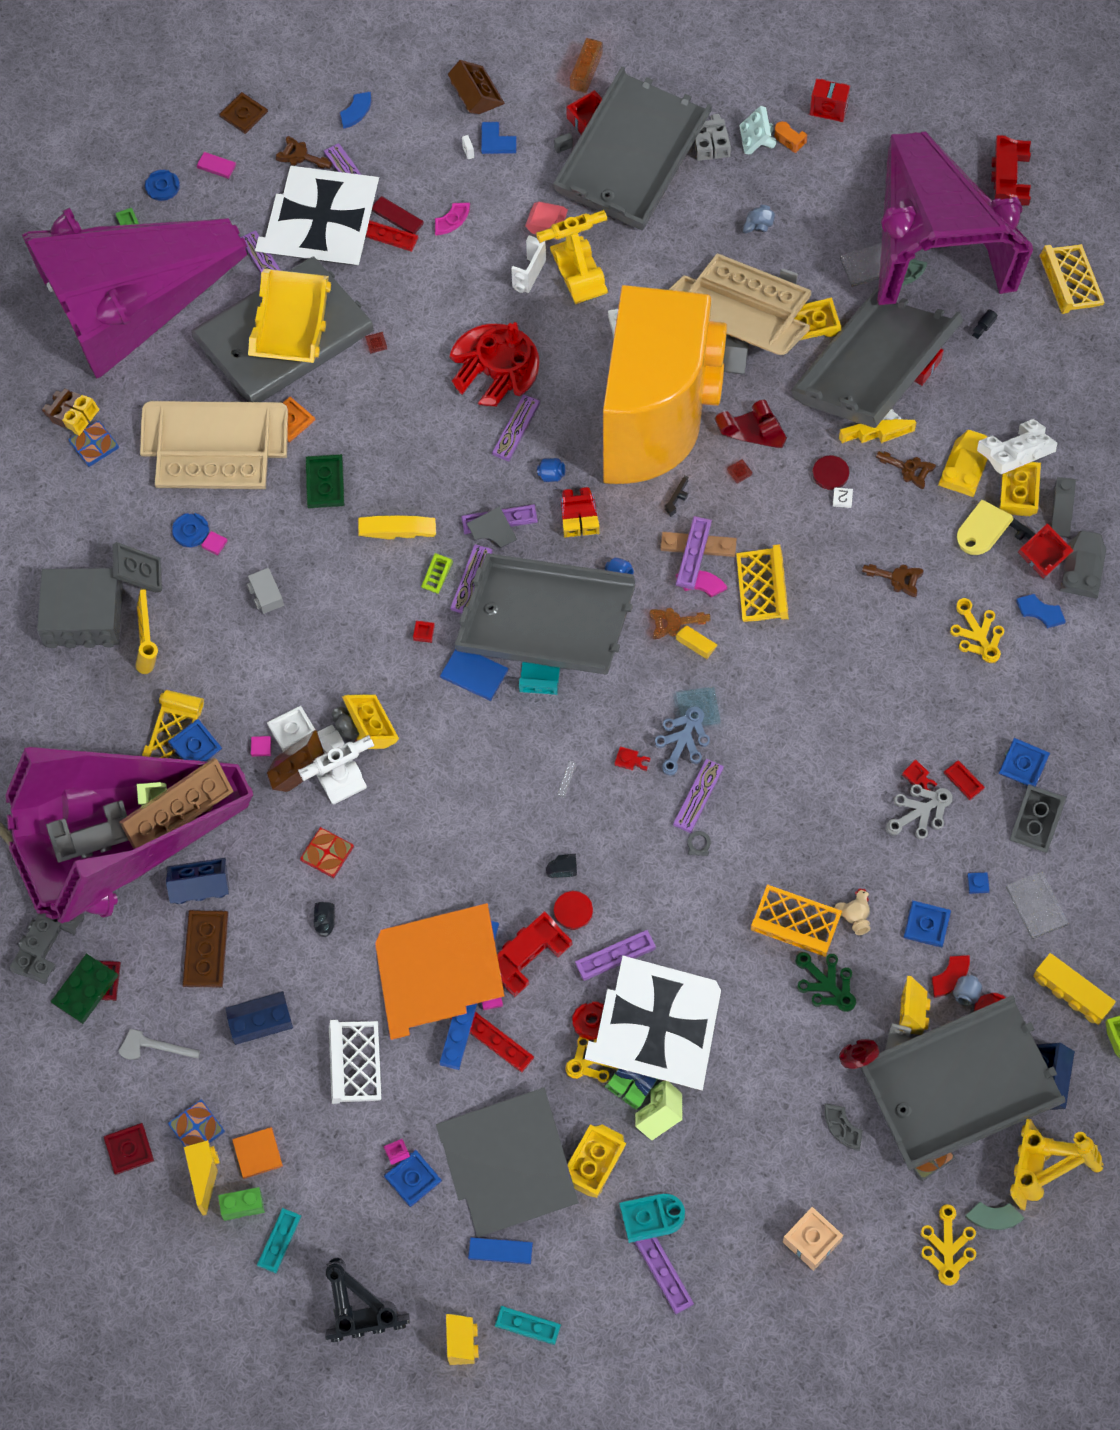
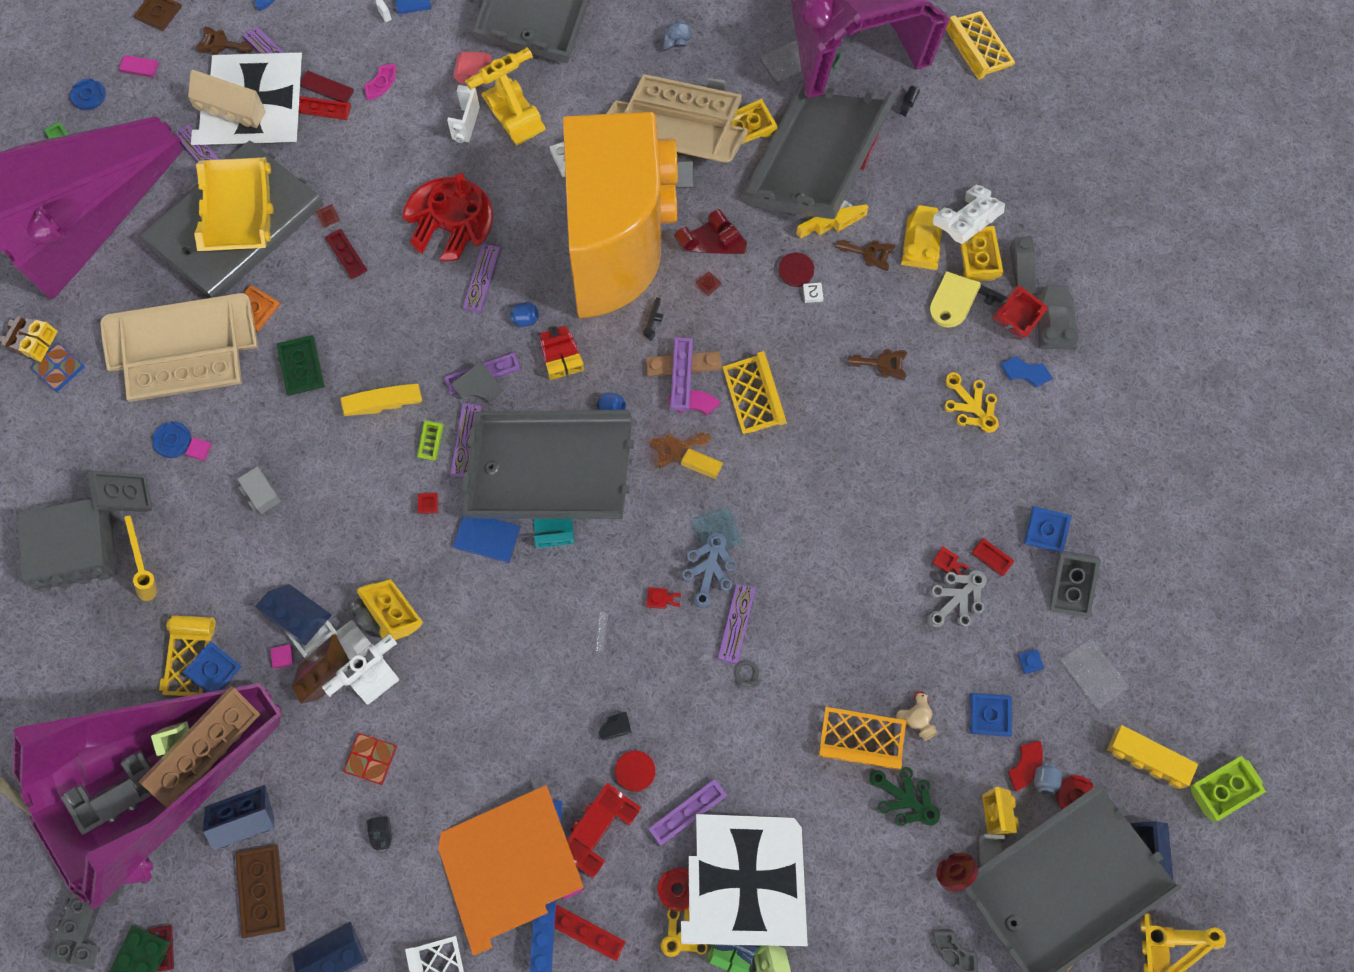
camera: 15 degrees left, 5 degrees up
(278, 708) = (293, 612): none -> dark blue slope
(297, 212) = (225, 99): none -> tan slope
(387, 382) = (346, 254): none -> dark red tile

